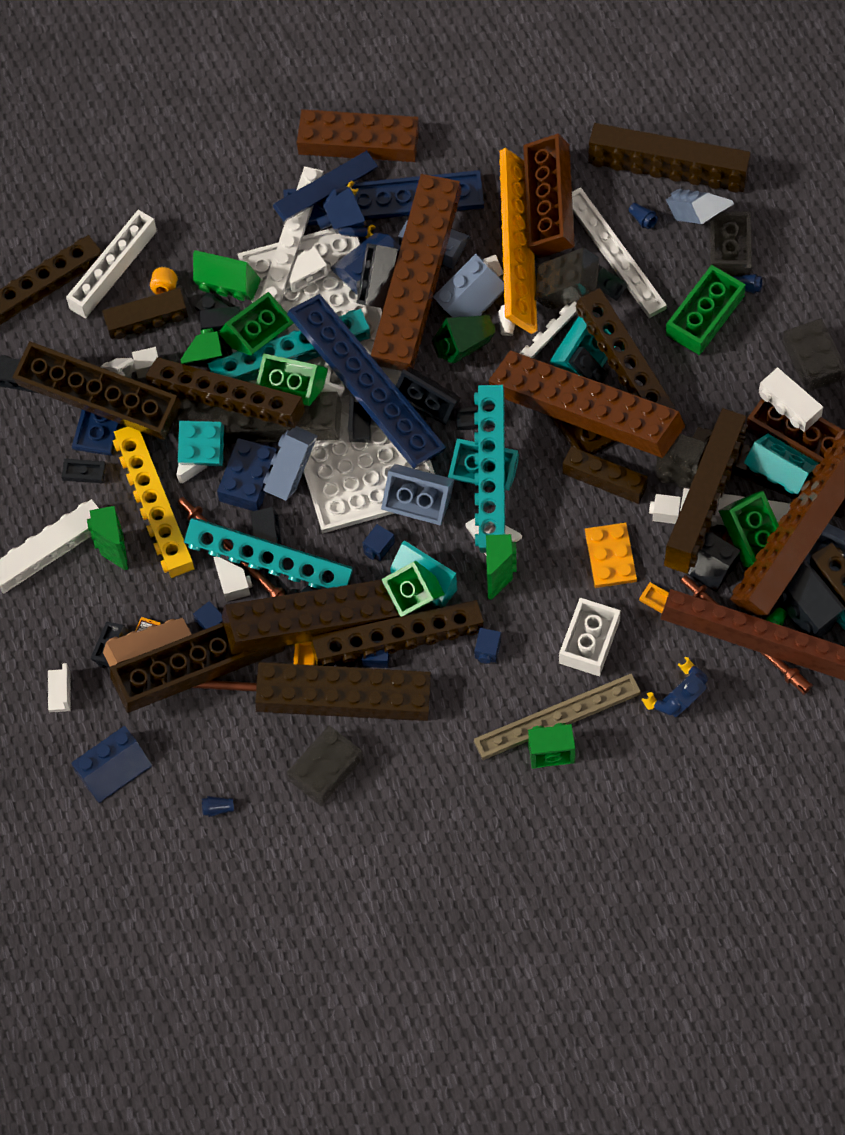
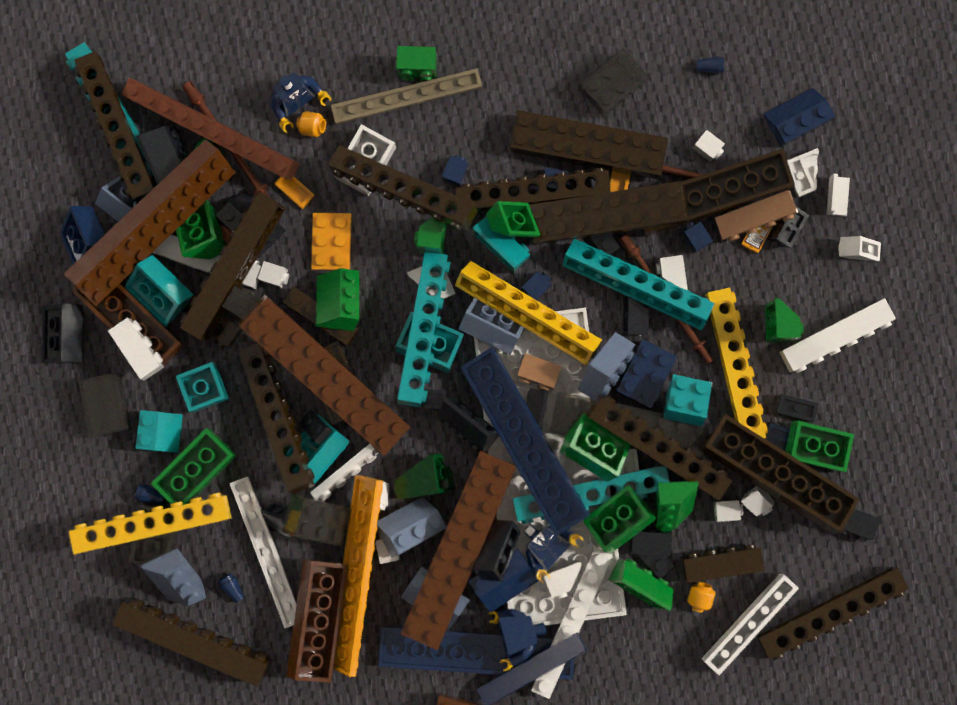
camera: 170 degrees left, 20 degrees up
(31, 636) = (859, 248): none -> white slope
(57, 432) = (819, 446): none -> green brick
(100, 707) = (804, 172): none -> white wing
(208, 716) = (709, 146): none -> white brick
(330, 286) = (546, 548): none -> dark blue torso
(361, 454) = (539, 372): none -> medium nougat brick
(393, 504) = (528, 312): none -> yellow brick
(465, 569) = (345, 158): none -> dark brown brick
(589, 486) = (337, 299): none -> green slope
(658, 668) = (311, 124): none -> light orange head
(715, 386) = (202, 387): none -> teal brick
(740, 235) = (80, 536): none -> yellow brick
(752, 341) = (159, 431): none -> teal slope

